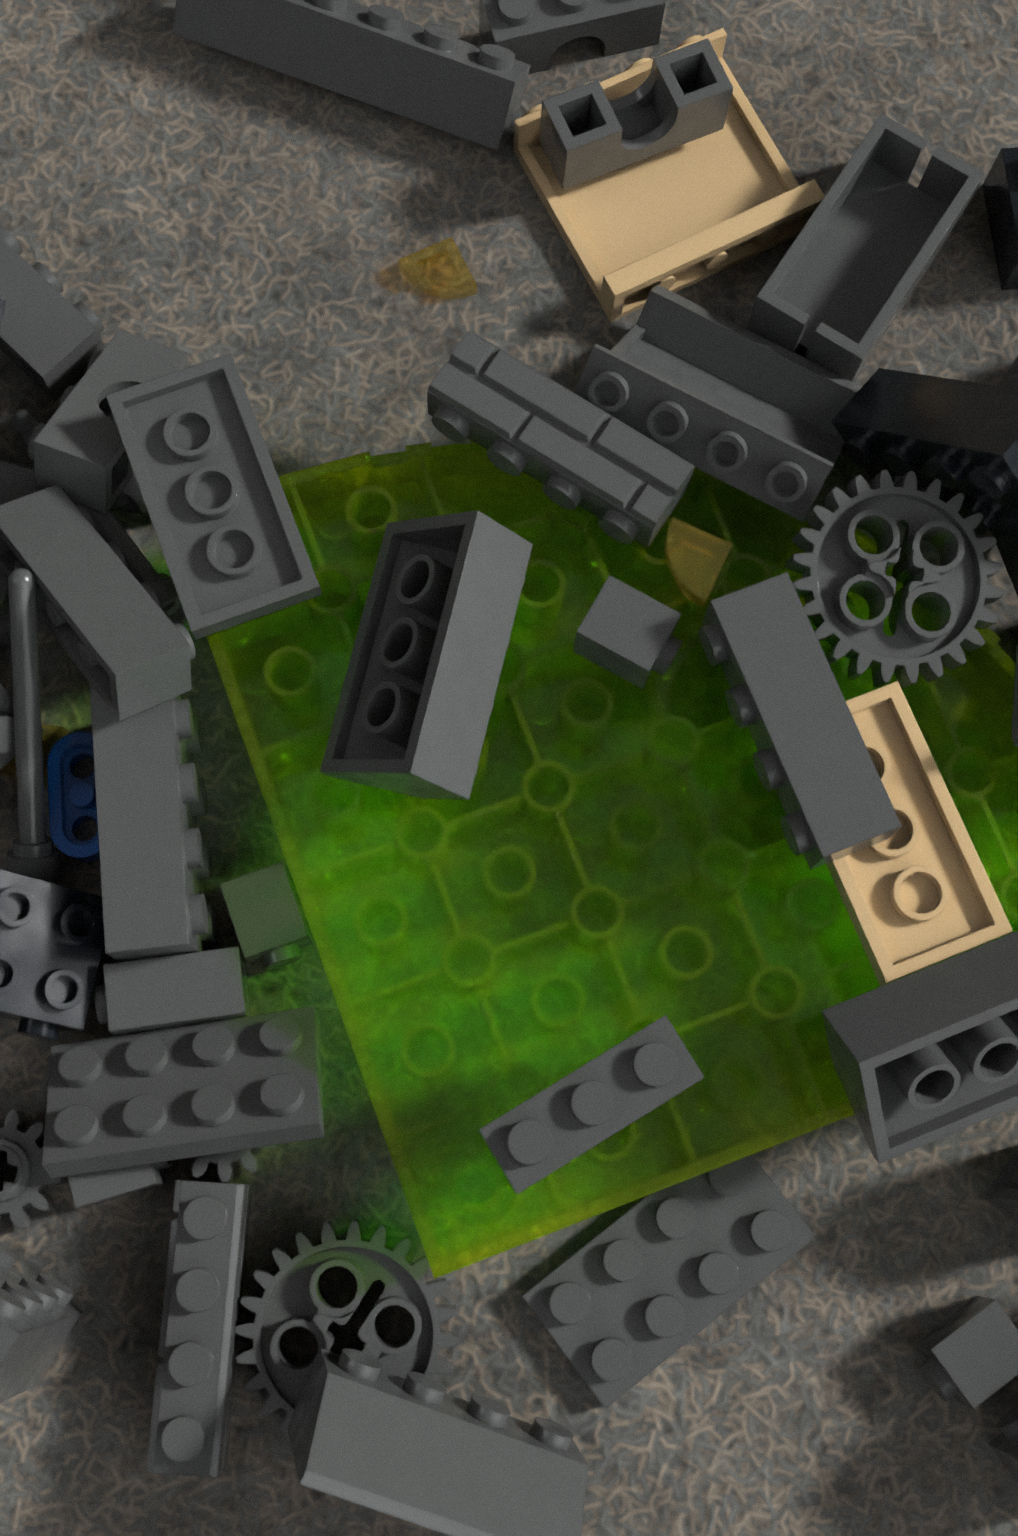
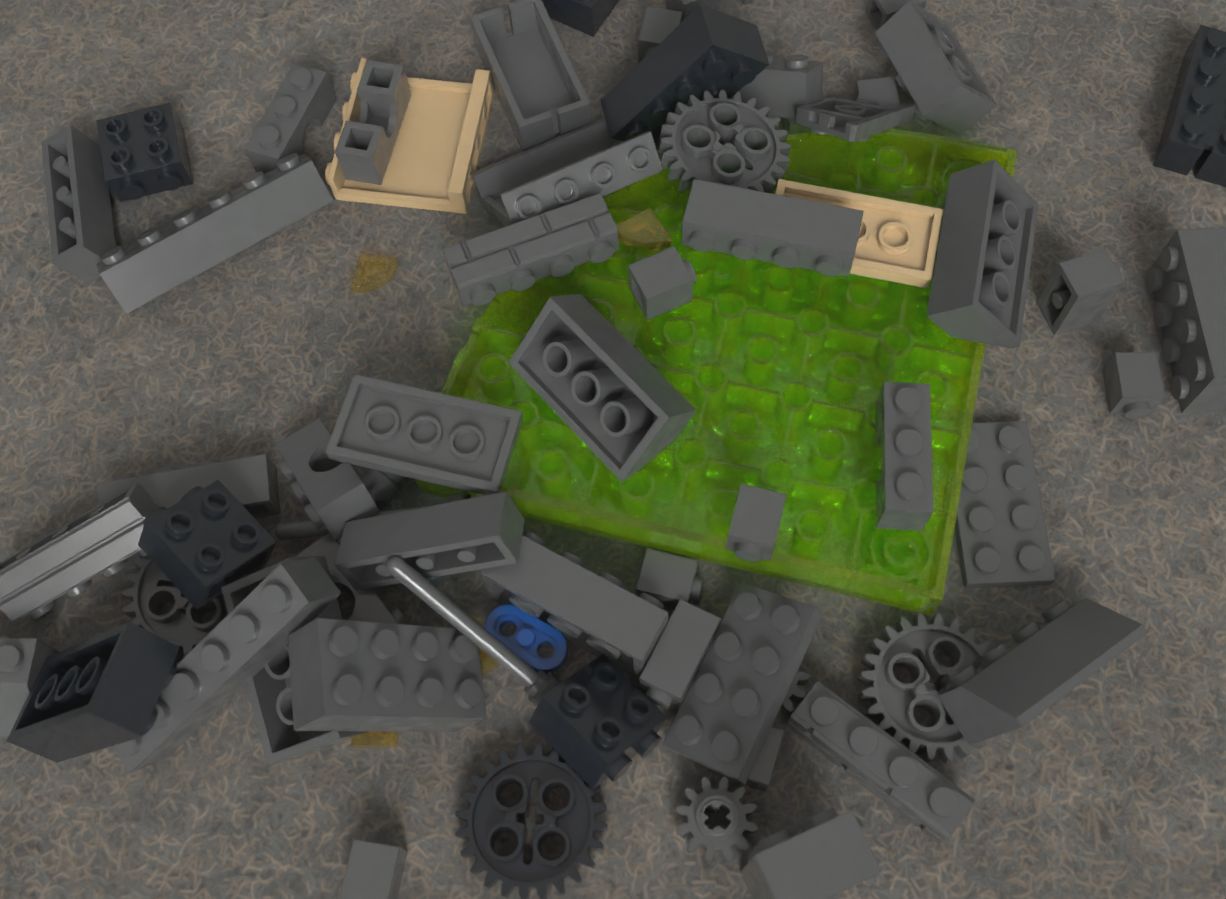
camera: 45 degrees left, 10 degrees down
(363, 975) = (755, 523): none -> dark grey brick

